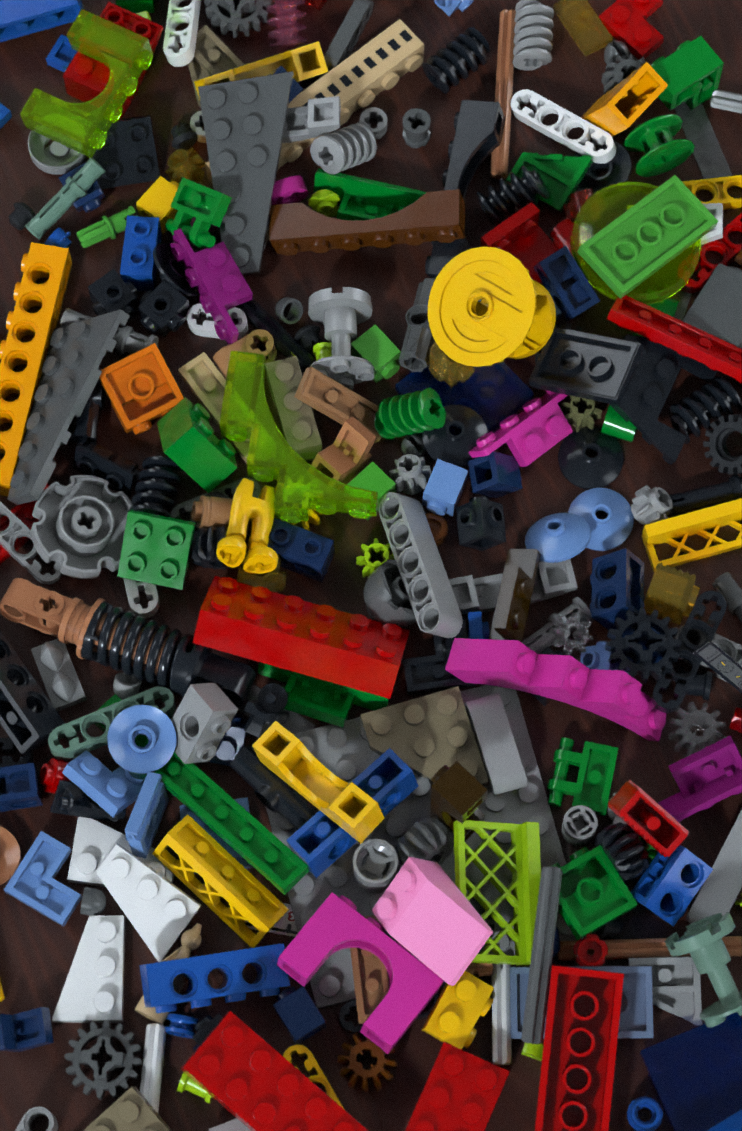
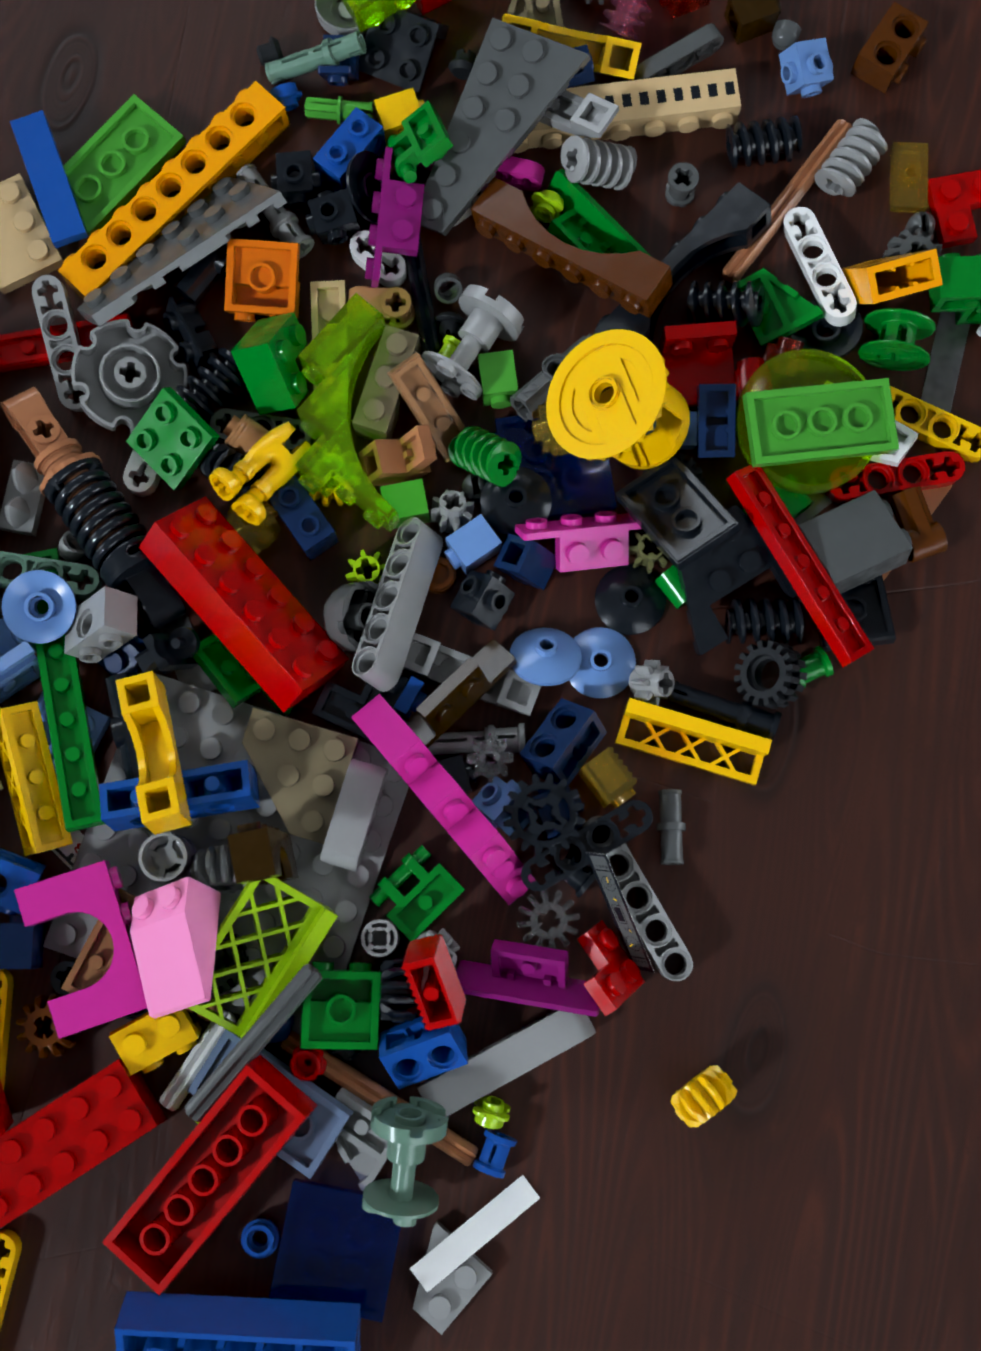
camera: 35 degrees right, 10 degrees up
(185, 165) = (443, 93): clear yellow gear -> none
(380, 115) = (652, 165): light grey bush -> none

